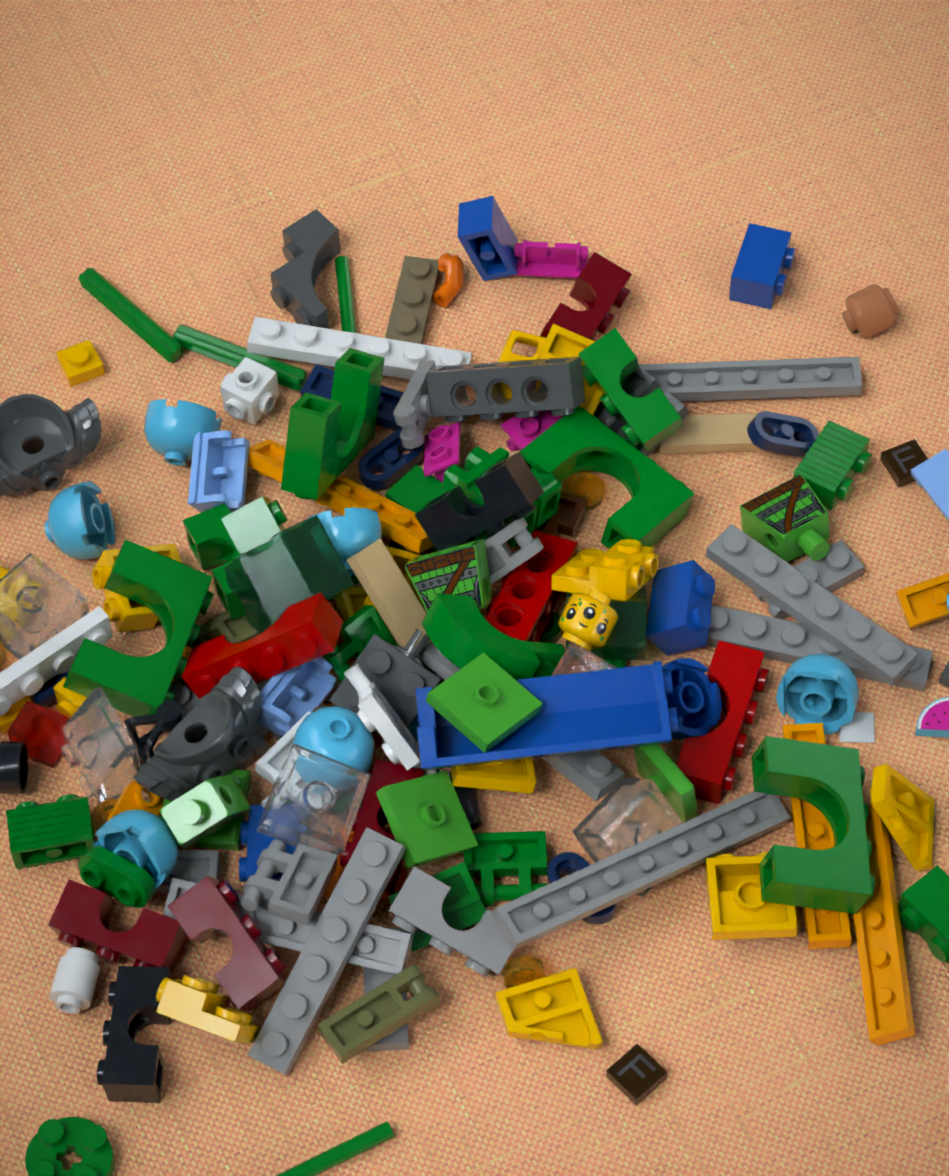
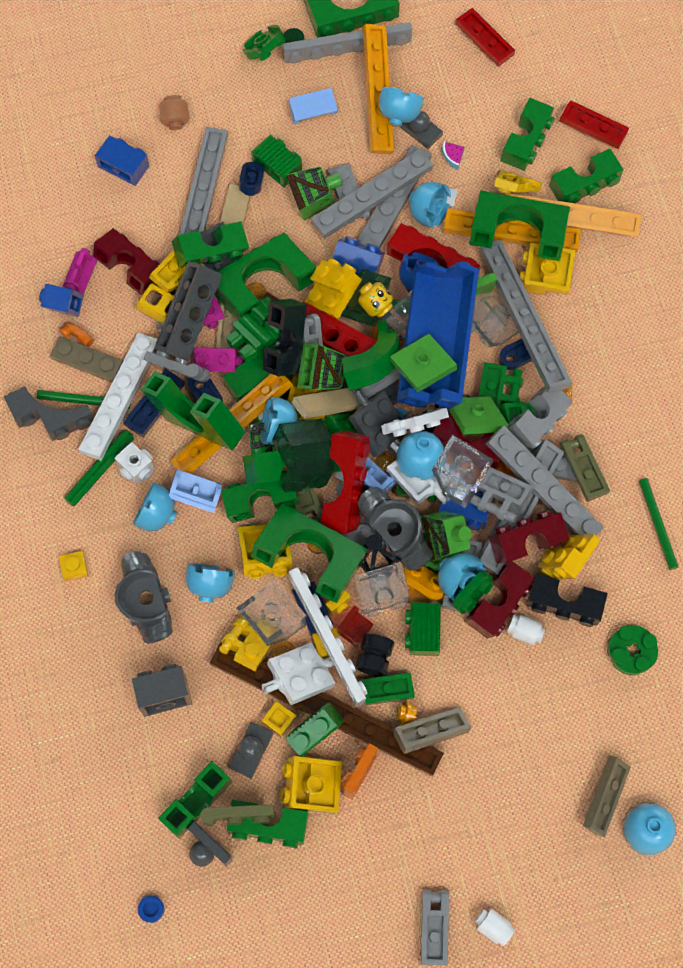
camera: 80 degrees left, 15 degrees up
(131, 315) = (44, 528): green axle -> none
(550, 1011) = (591, 384): yellow wing -> none
(636, 1074) = (634, 351): dark brown tile -> none
(901, 460) = (282, 124): dark brown tile -> none

